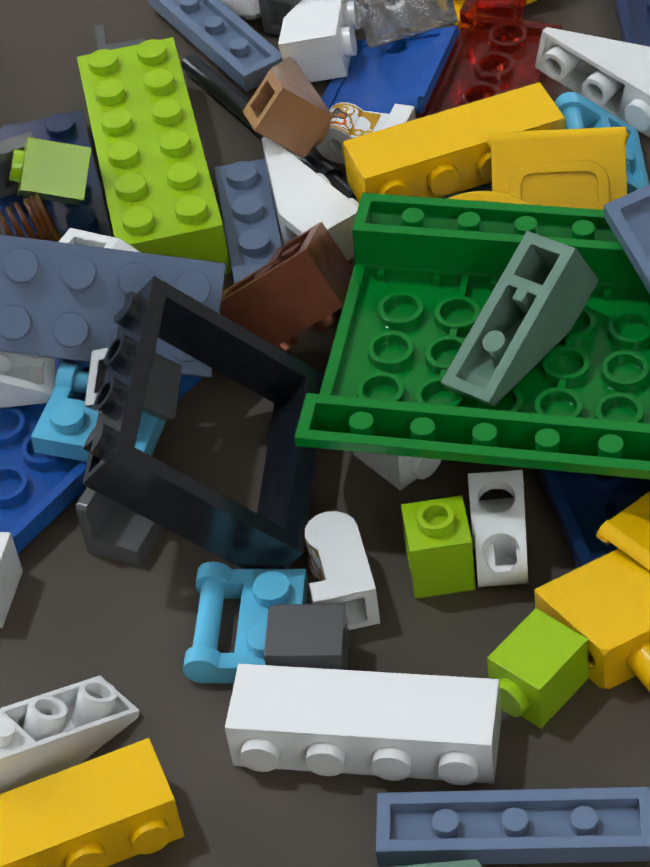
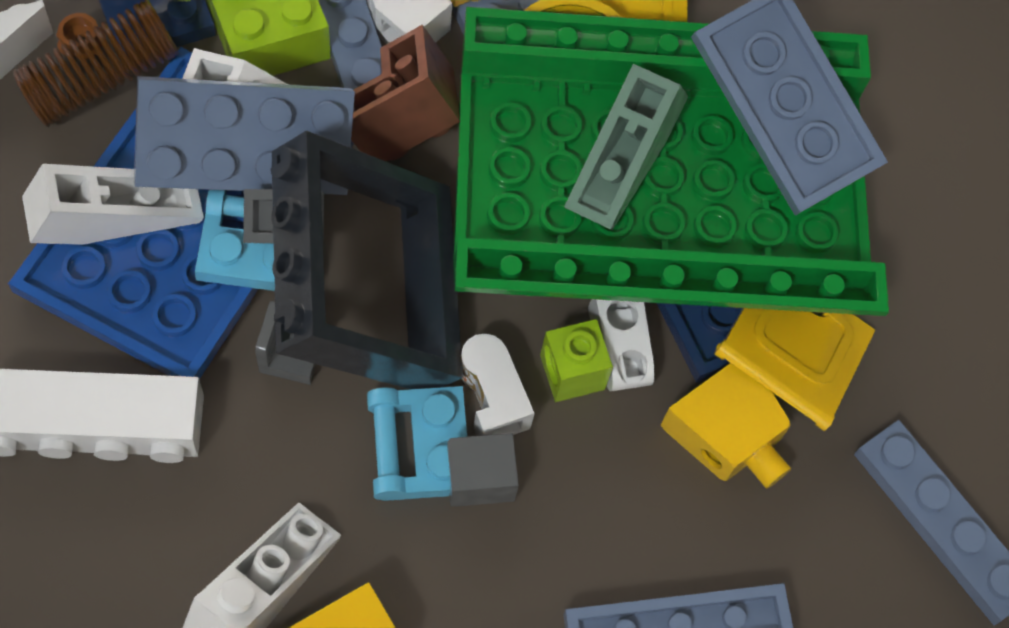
camera: 25 degrees left, 20 degrees up
(365, 723) = (542, 541): white brick -> none
(539, 667) = (675, 475): lime brick -> none

